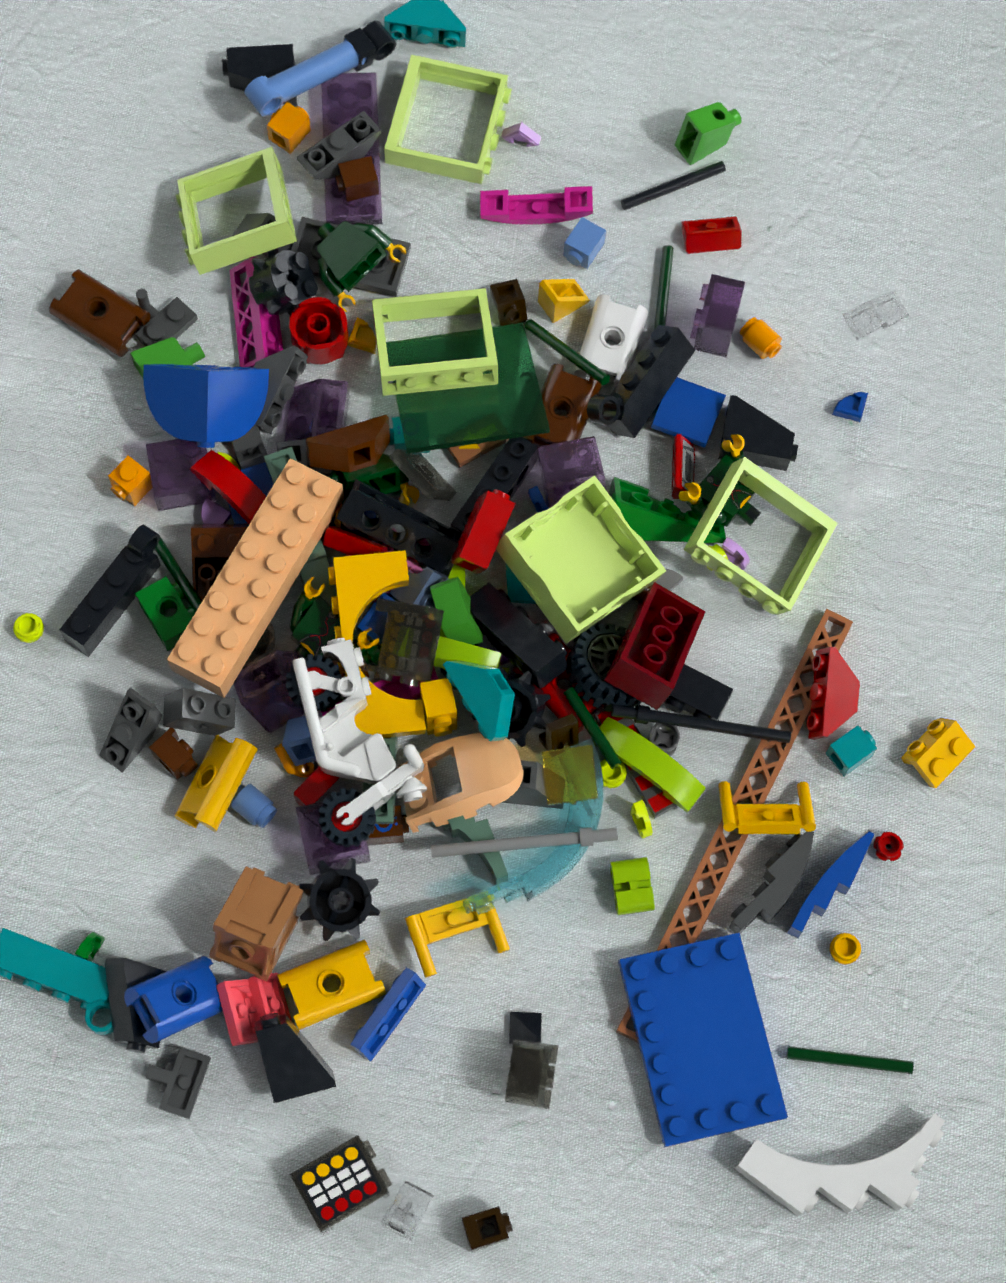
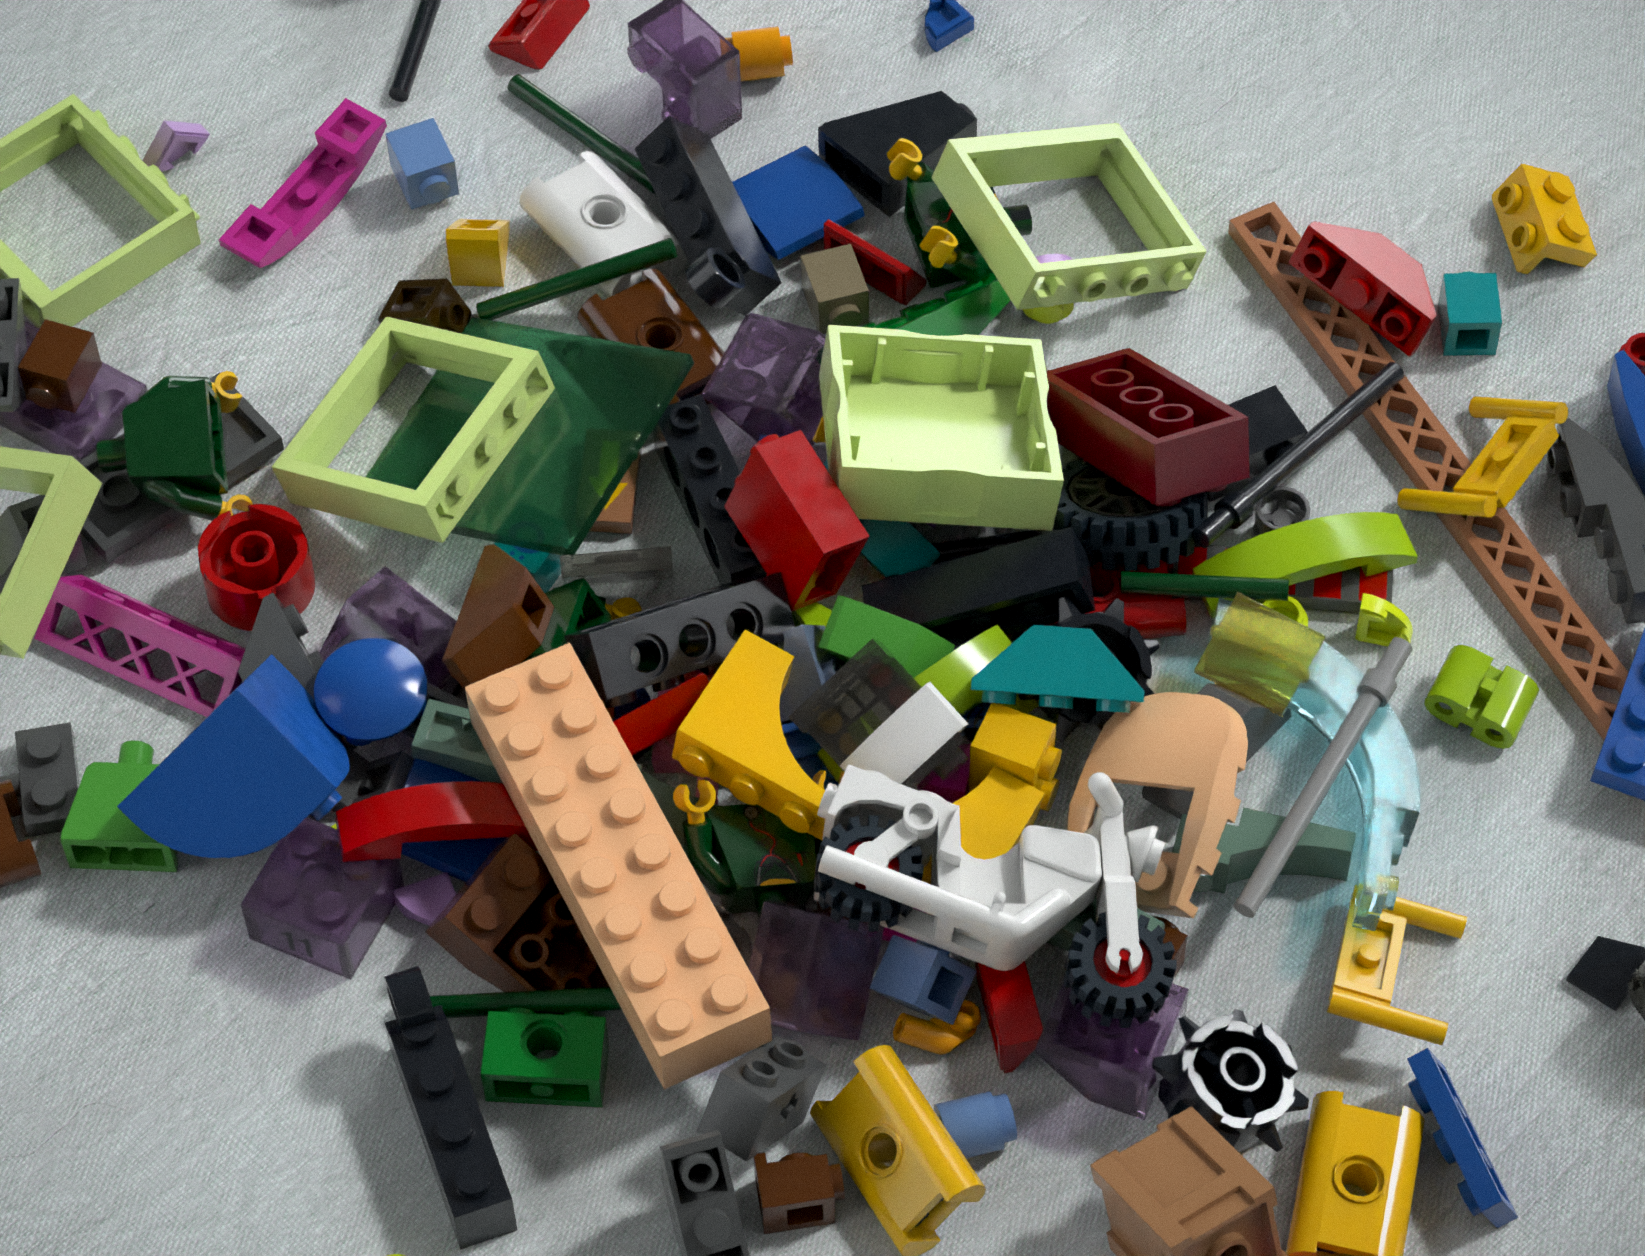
camera: 50 degrees left, 15 degrees down
(130, 481) = (274, 974): light orange brick -> none
(281, 420) = (370, 690): none -> blue dish
(282, 281) = (138, 559): black brick -> none
(362, 337) = (320, 528): yellow tile -> none
(402, 655) = (909, 736): none -> white slope
(560, 733) = (1180, 639): dark brown bracket -> none
(650, 463) = (835, 288): none -> dark tan brick

